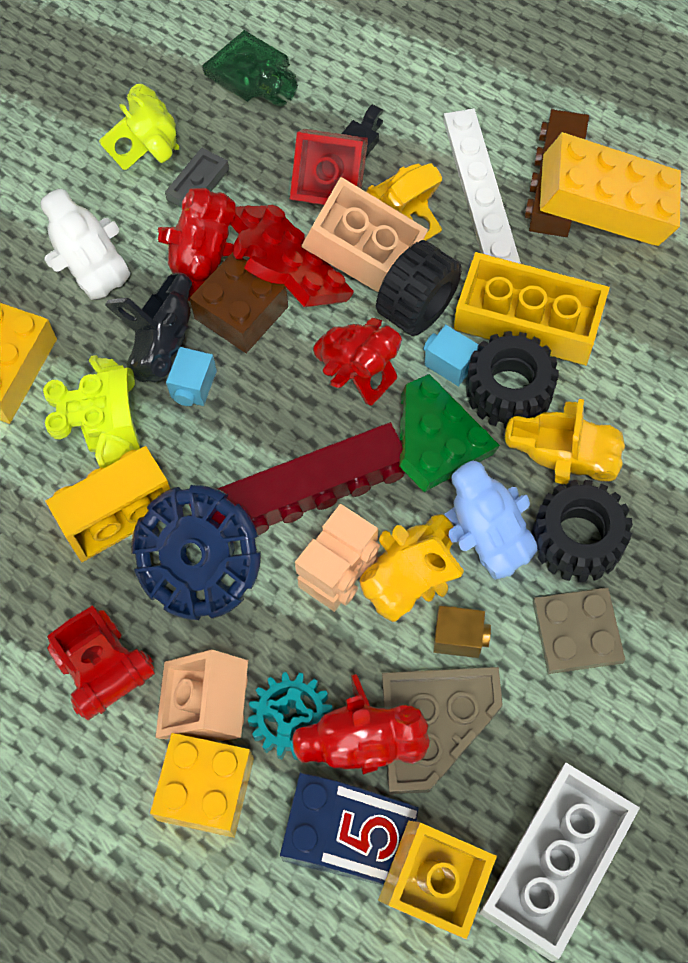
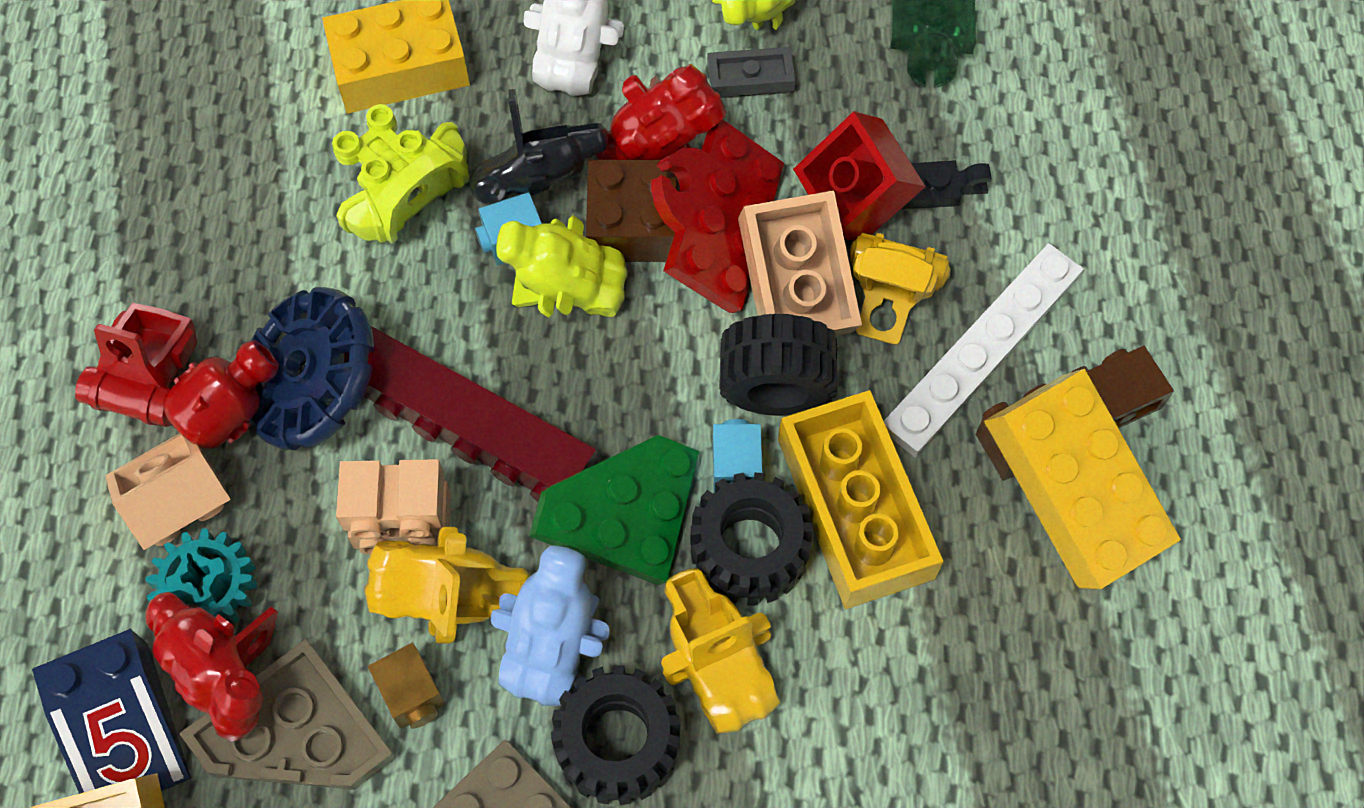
camera: 50 degrees right, 0 degrees up
(107, 502) = (303, 251): yellow brick -> none
(170, 622) = (219, 396): none -> red piece
(202, 785) = (72, 551): yellow brick -> none
(251, 362) = (562, 268): none -> neon yellow piece
(358, 354) = (651, 361): red piece -> none

